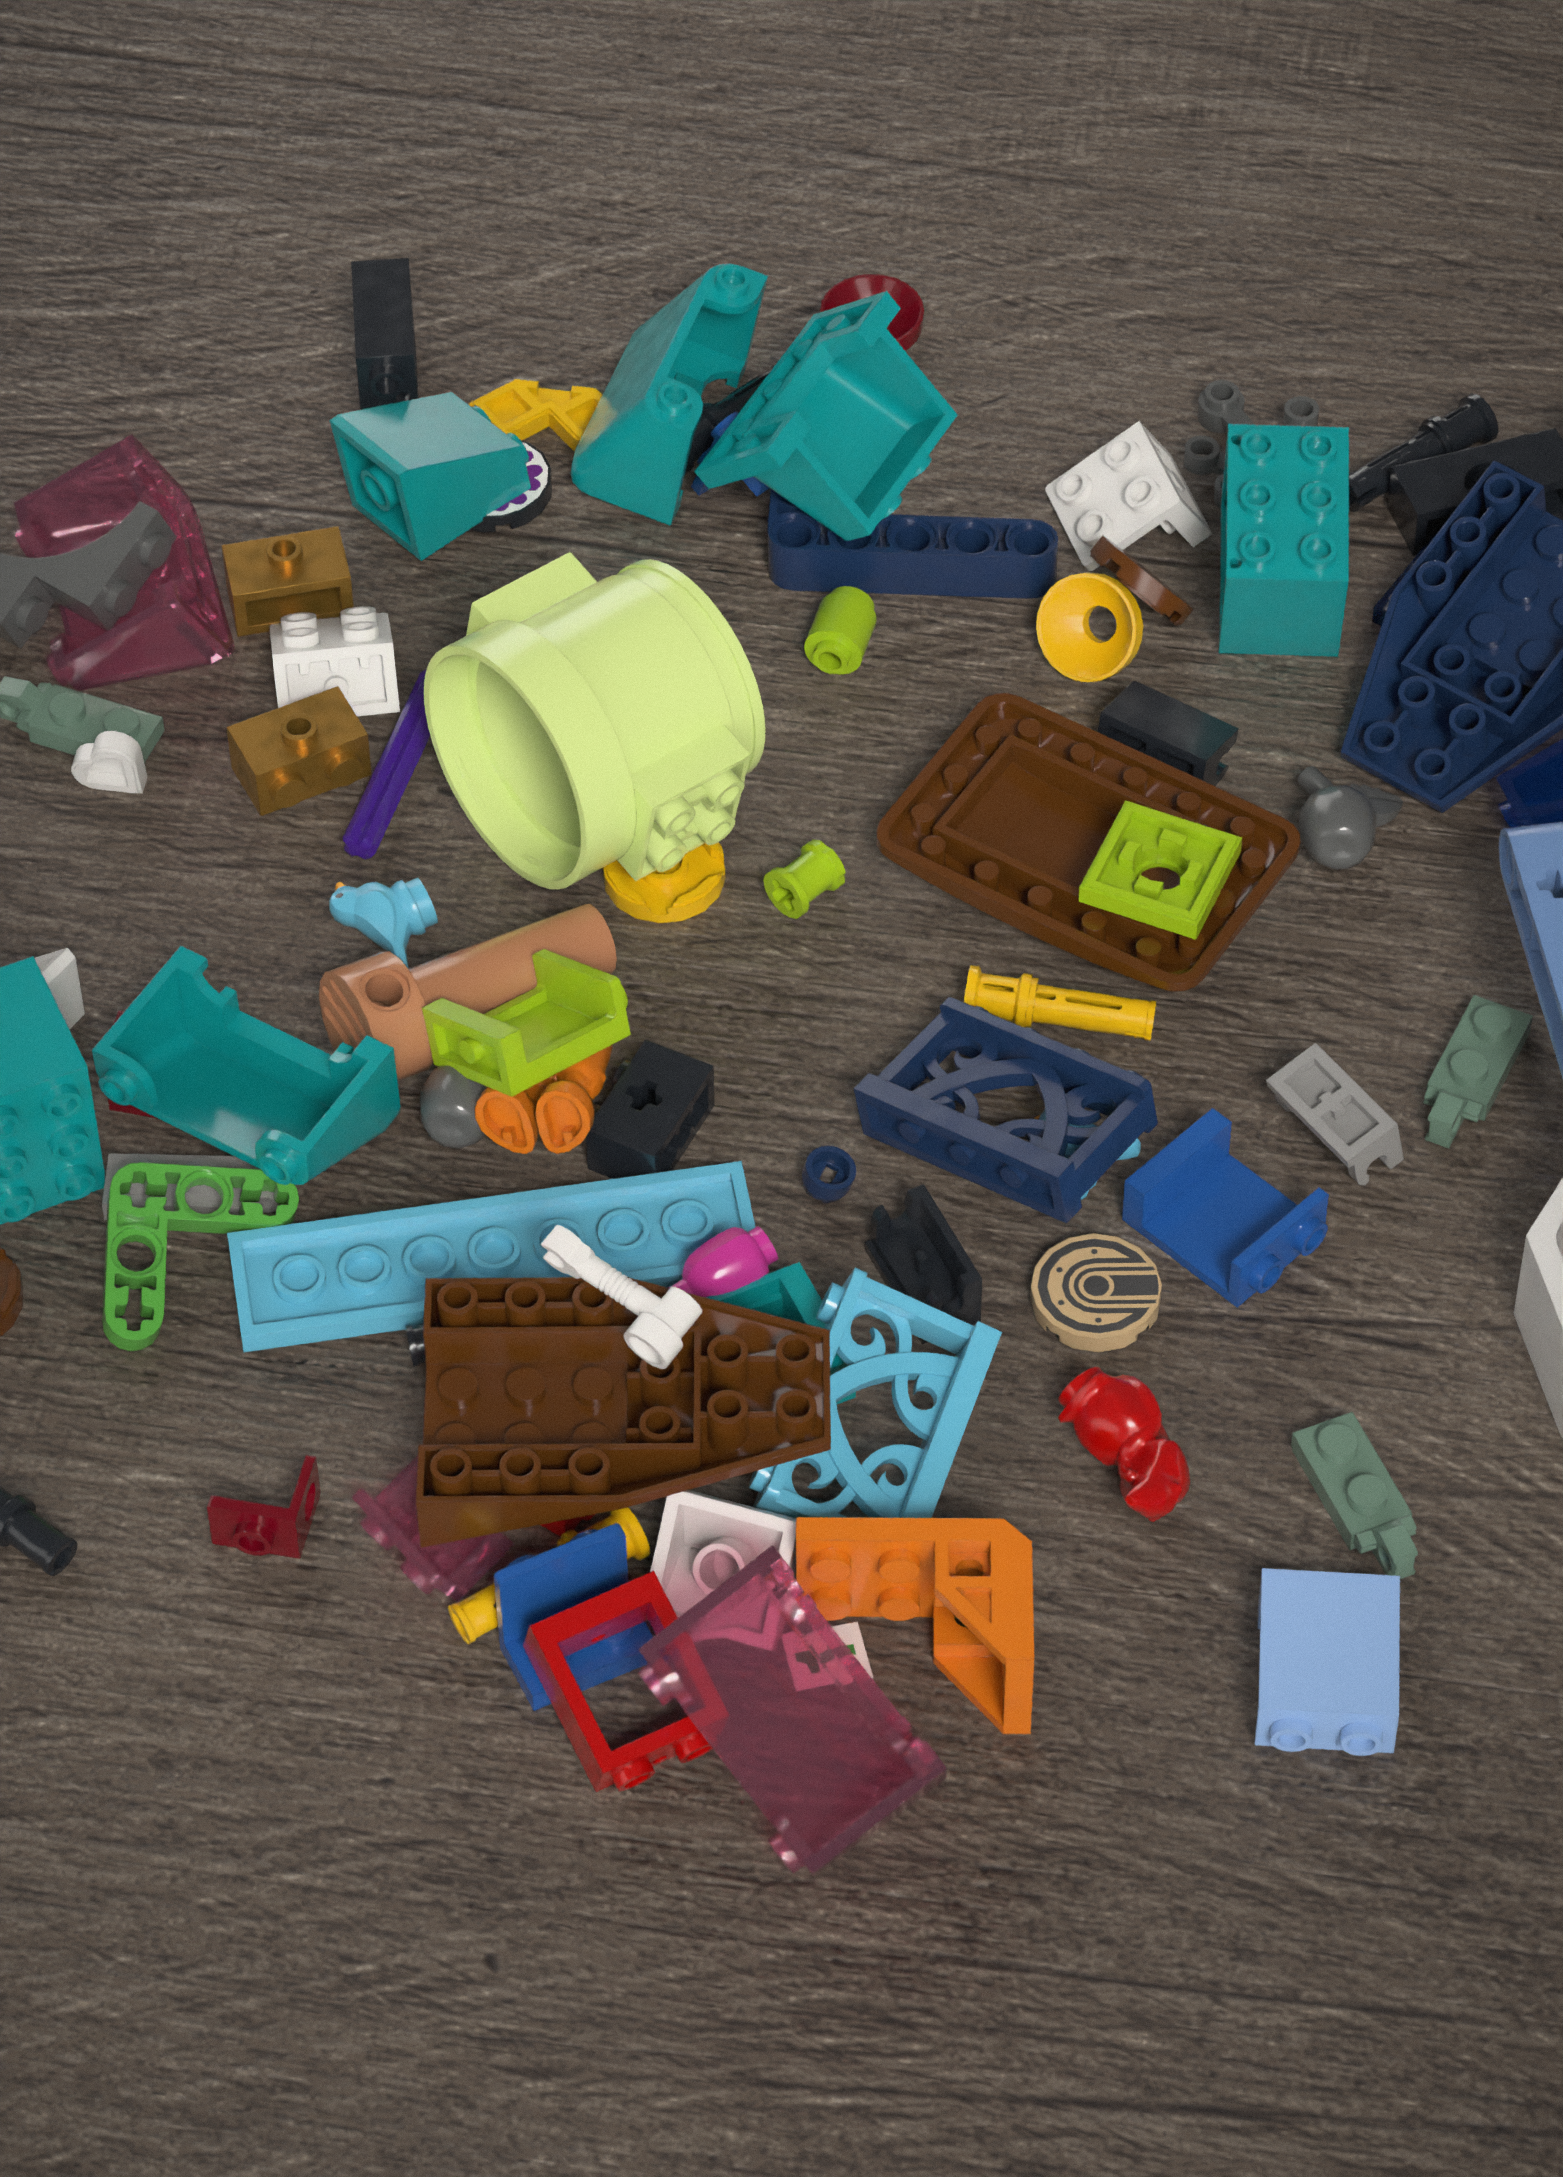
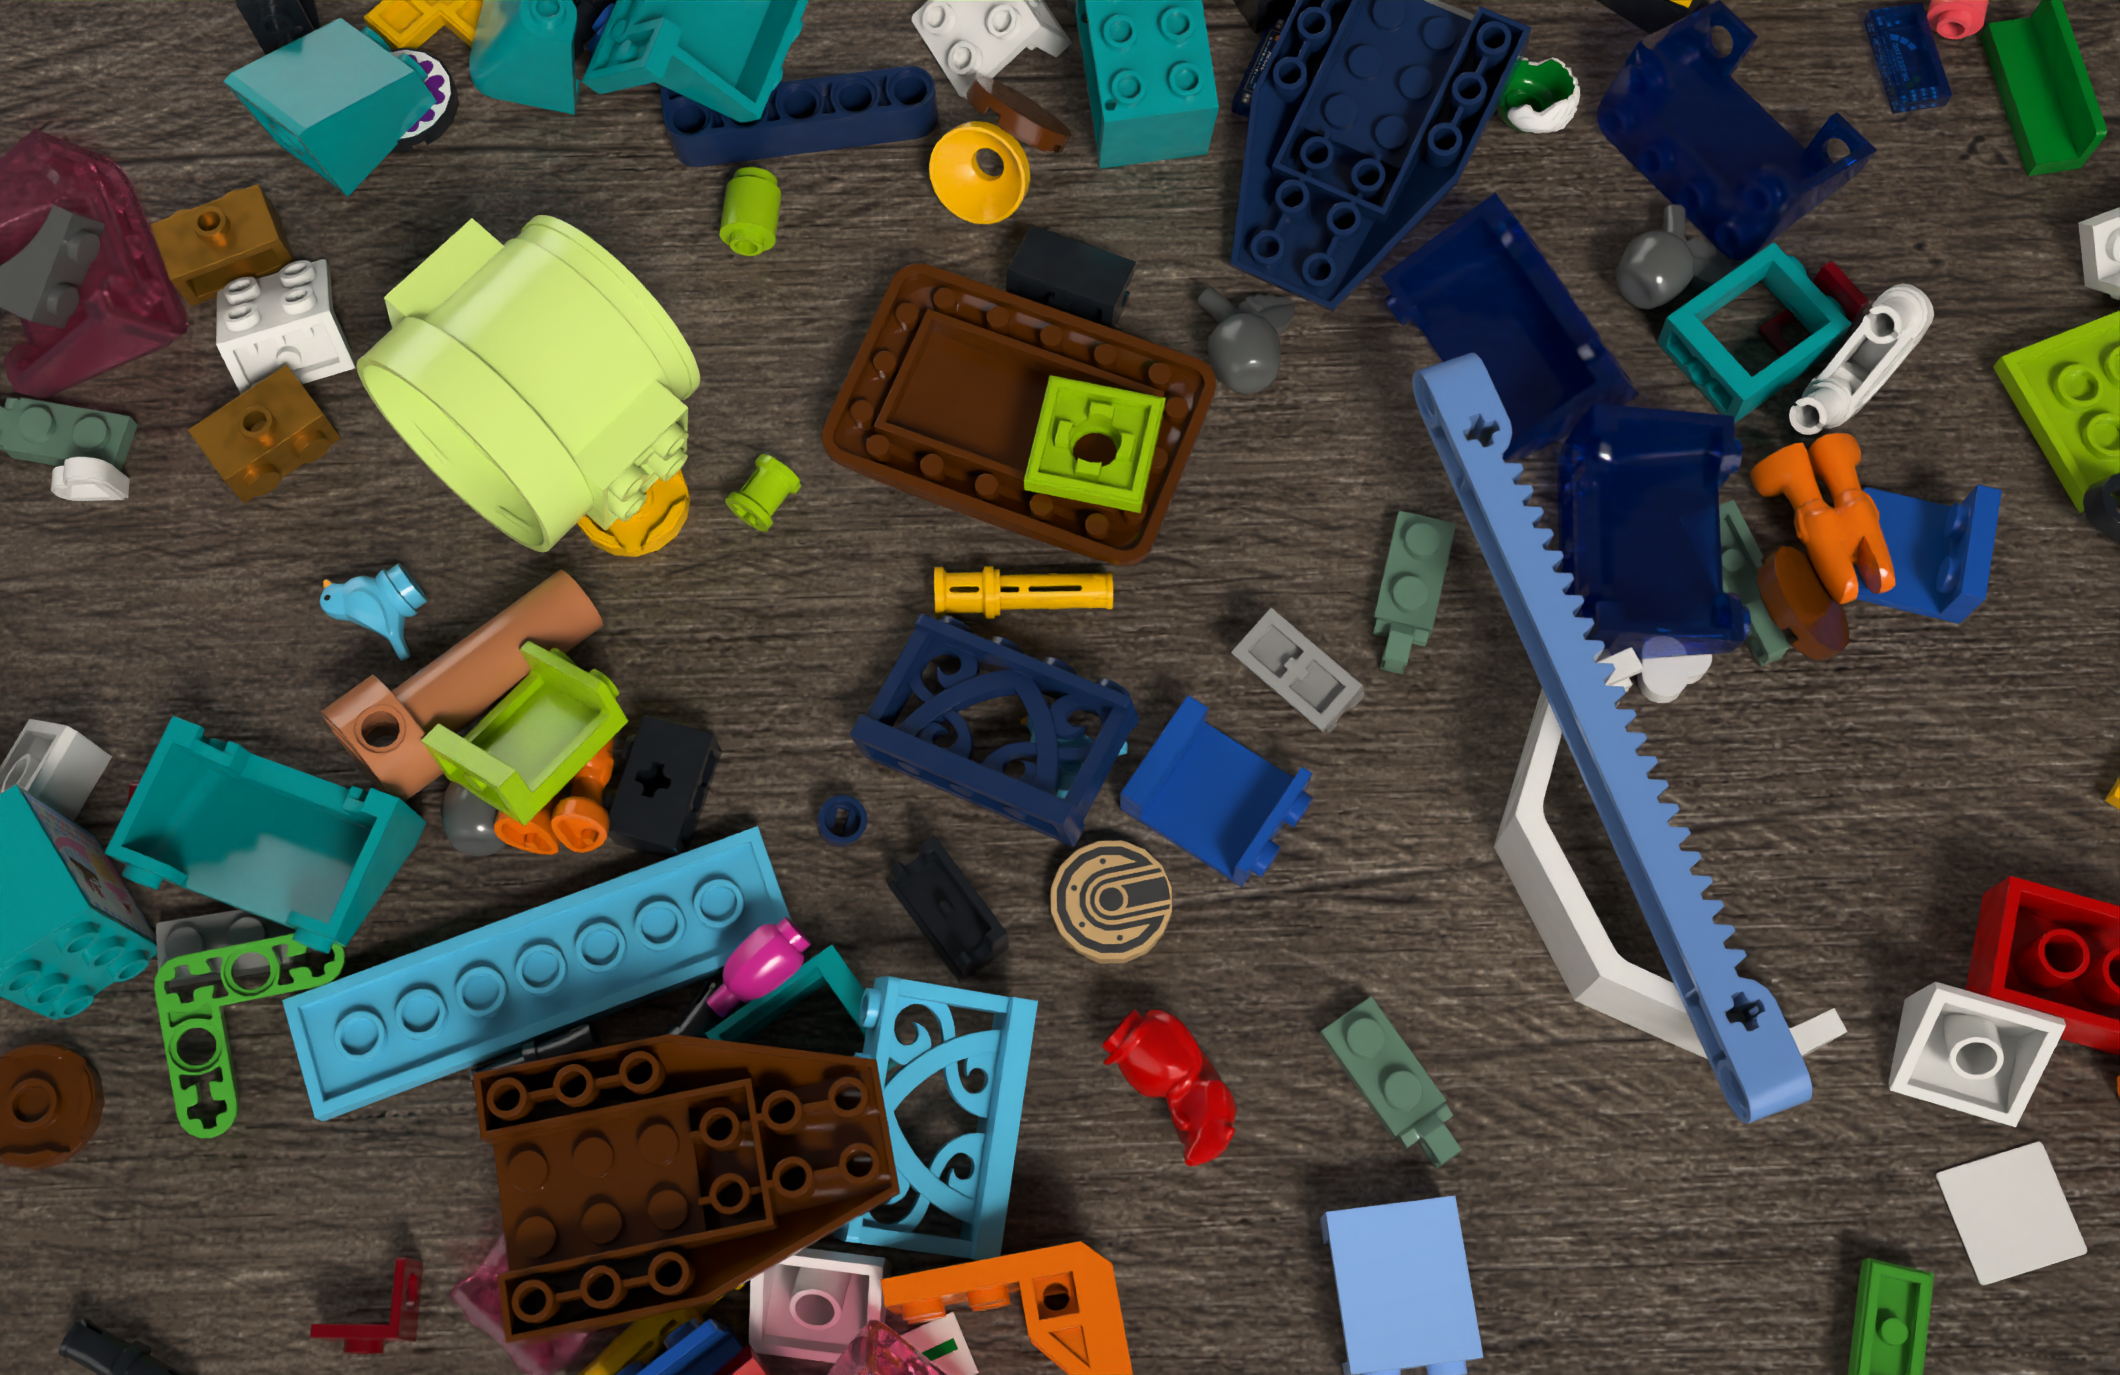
camera: 10 degrees left, 20 degrees up
(389, 777) = (355, 449): dark purple axle -> none
(659, 1323) = (710, 1088): white brick -> none

